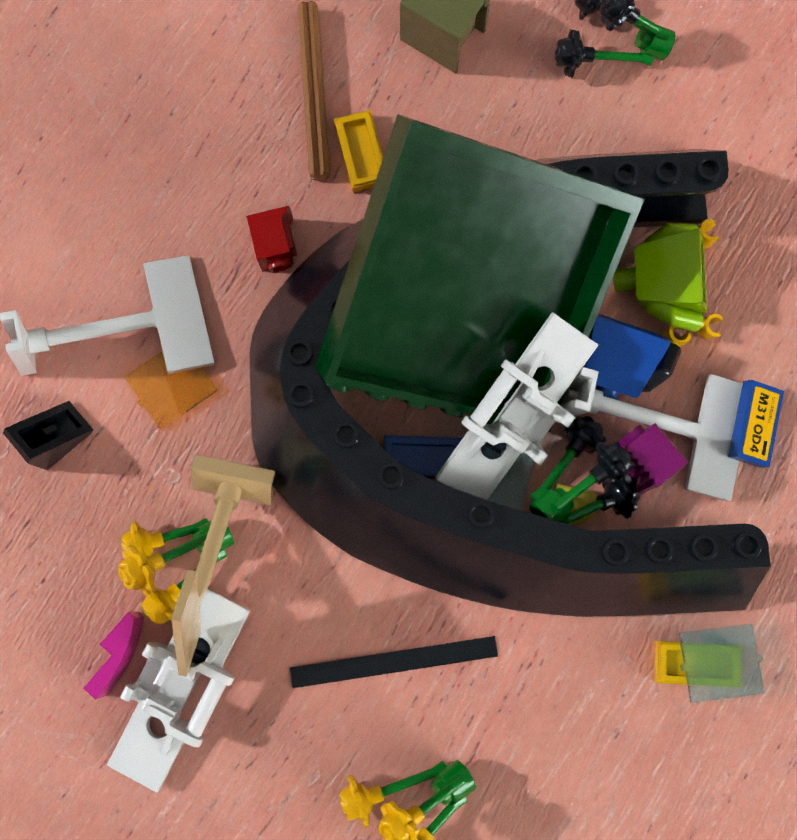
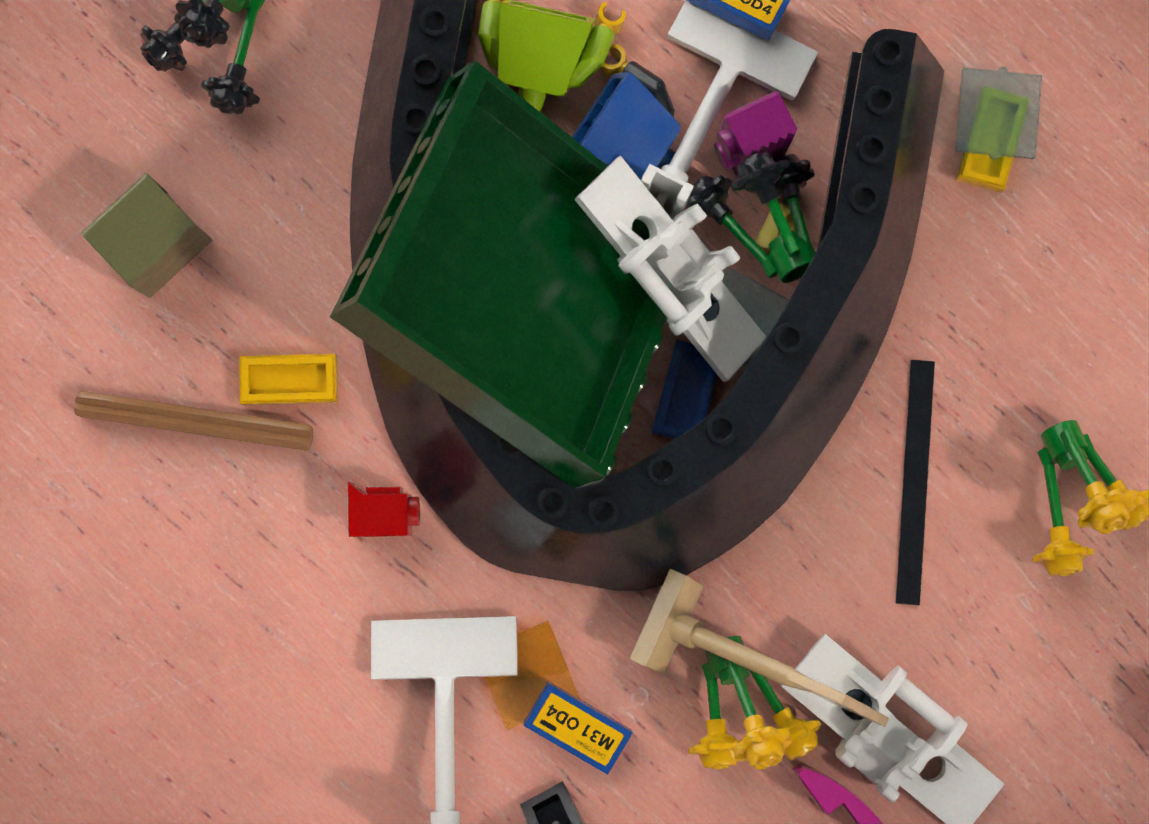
camera: 80 degrees left, 5 degrees up
(136, 430) = (577, 727): none -> tile

